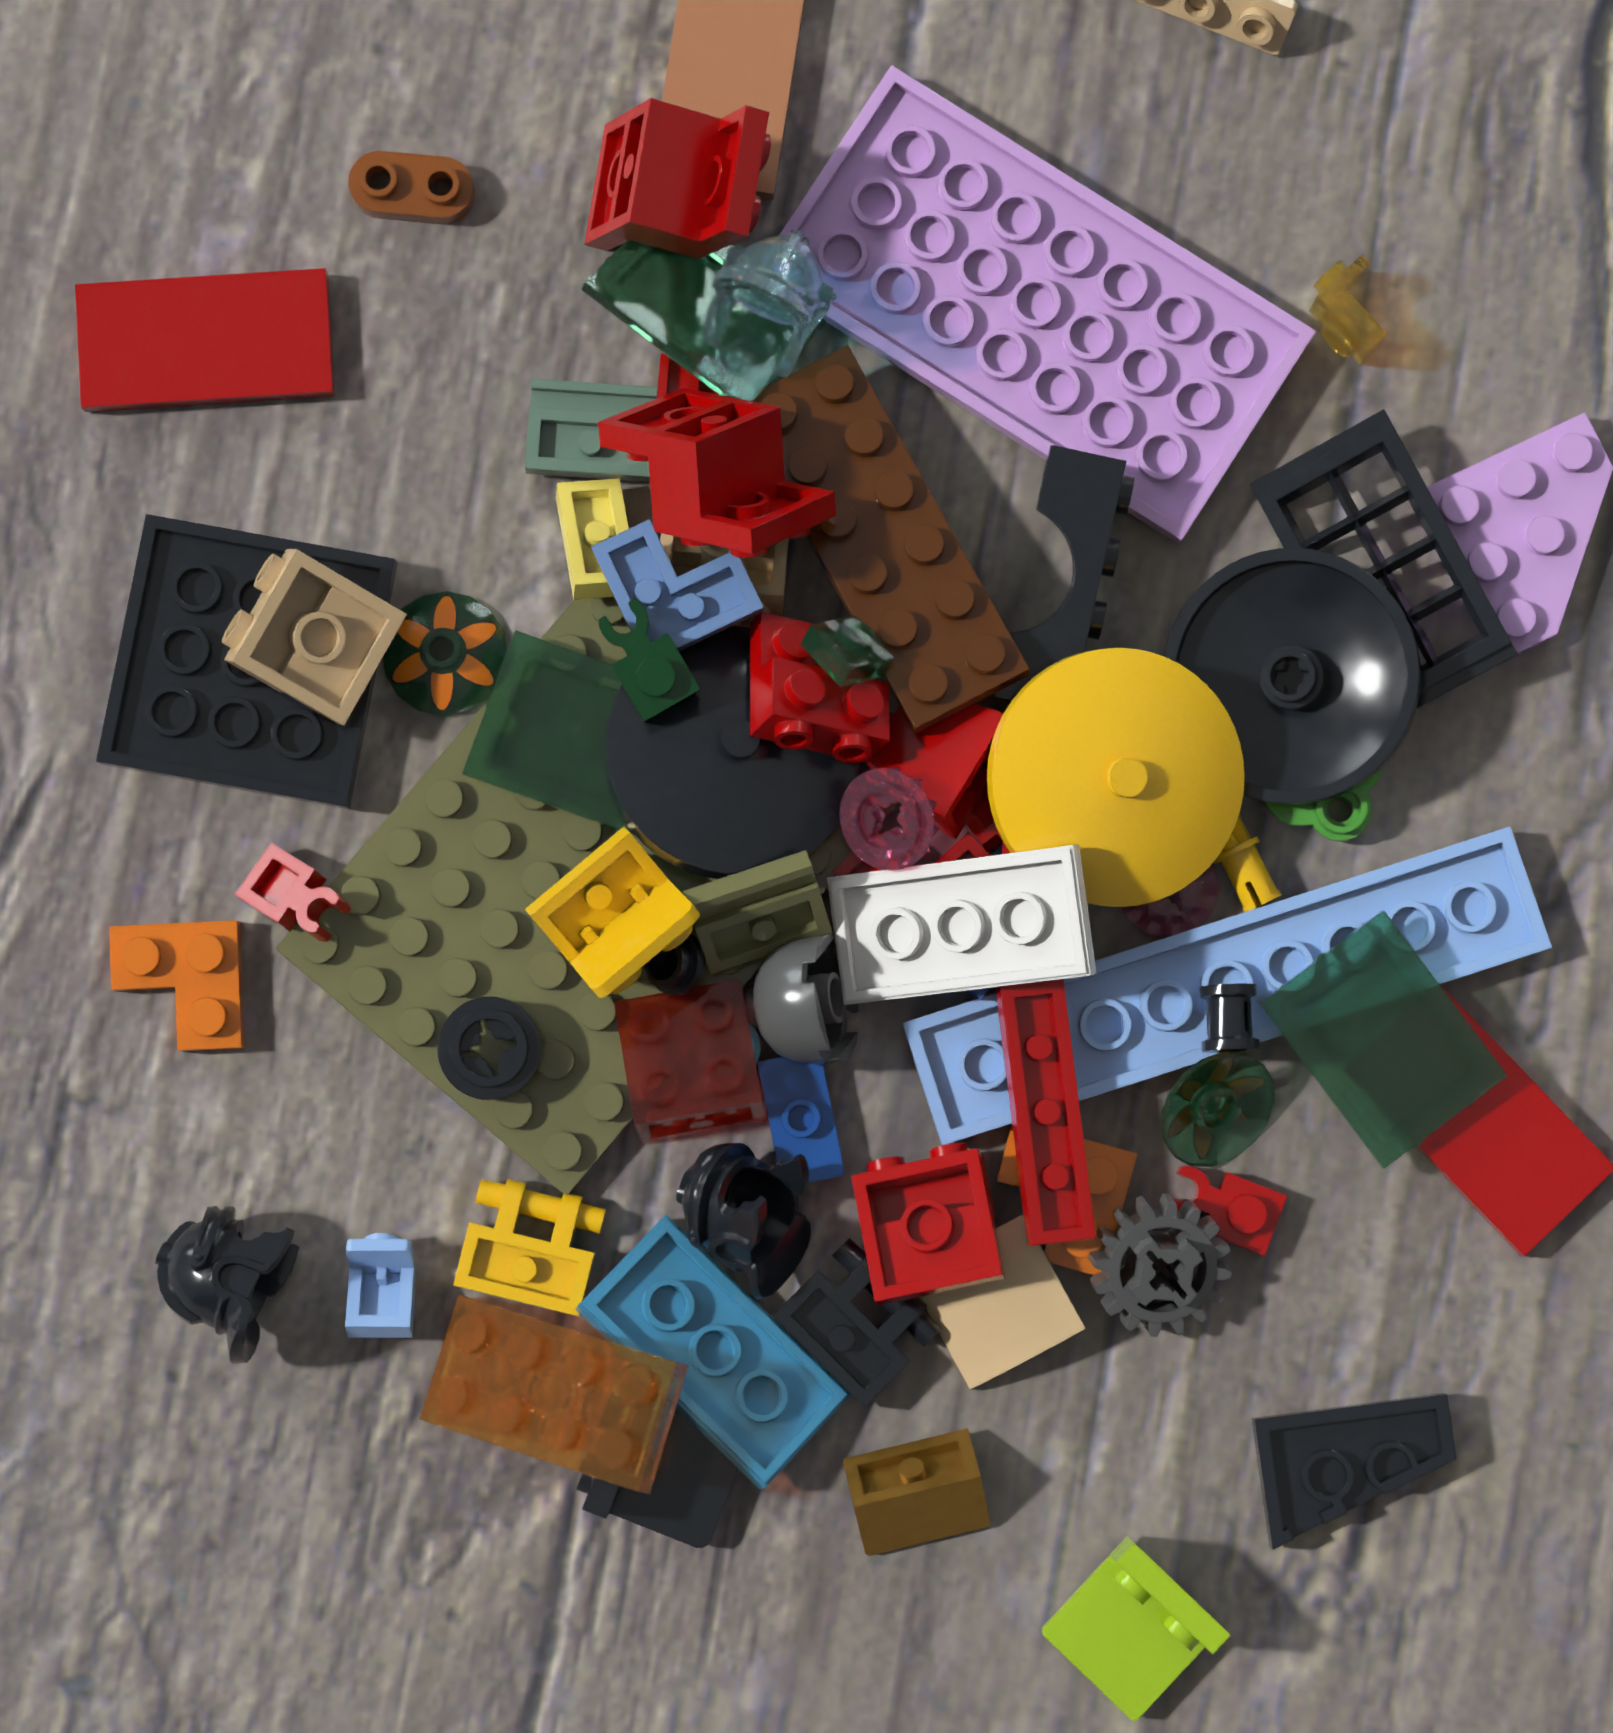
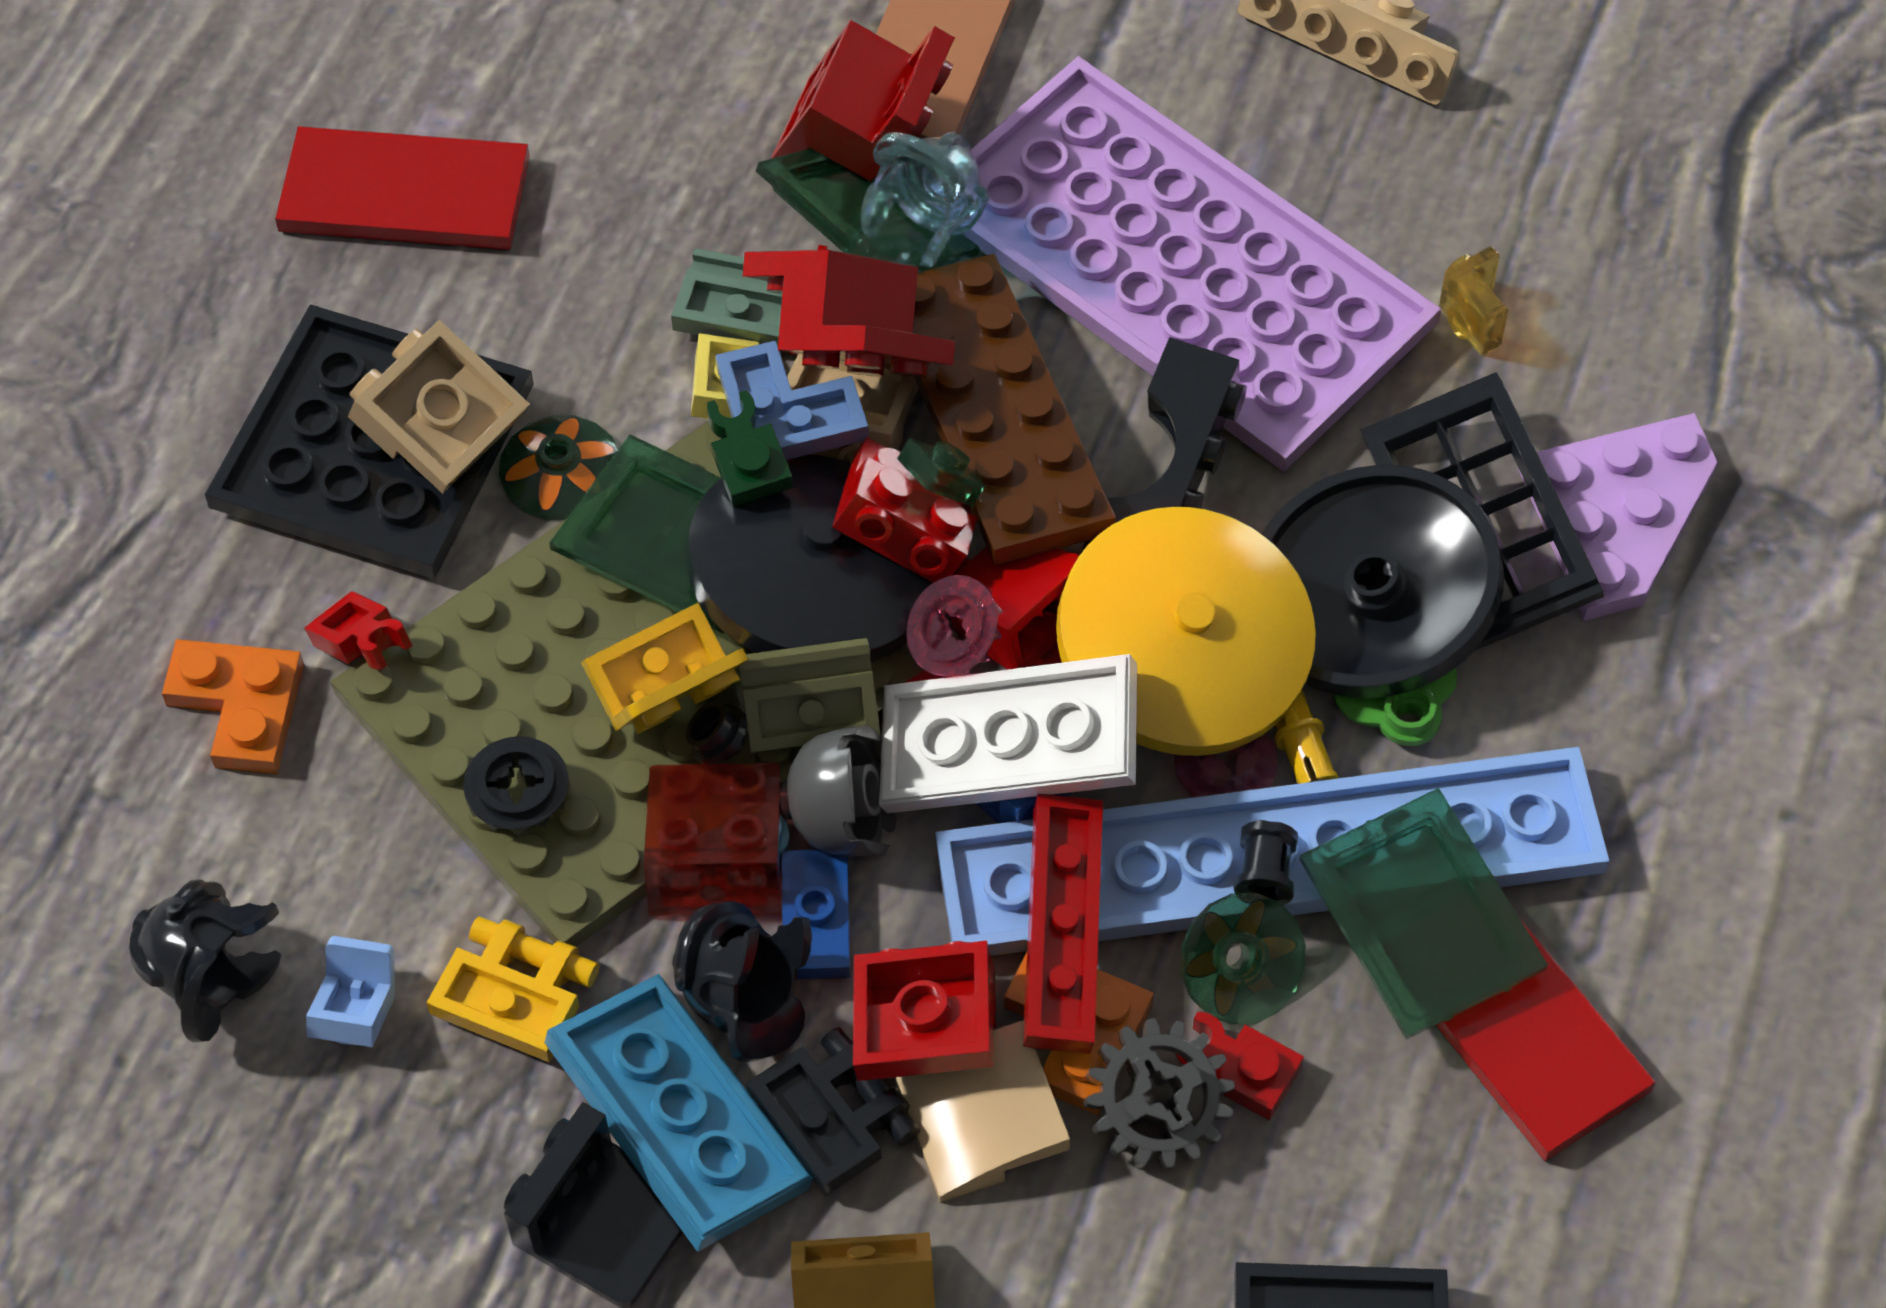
camera: 10 degrees right, 25 degrees down
(409, 190) = (615, 99): dark orange plate -> none
(554, 1393) = (503, 1106): clear orange plate -> none

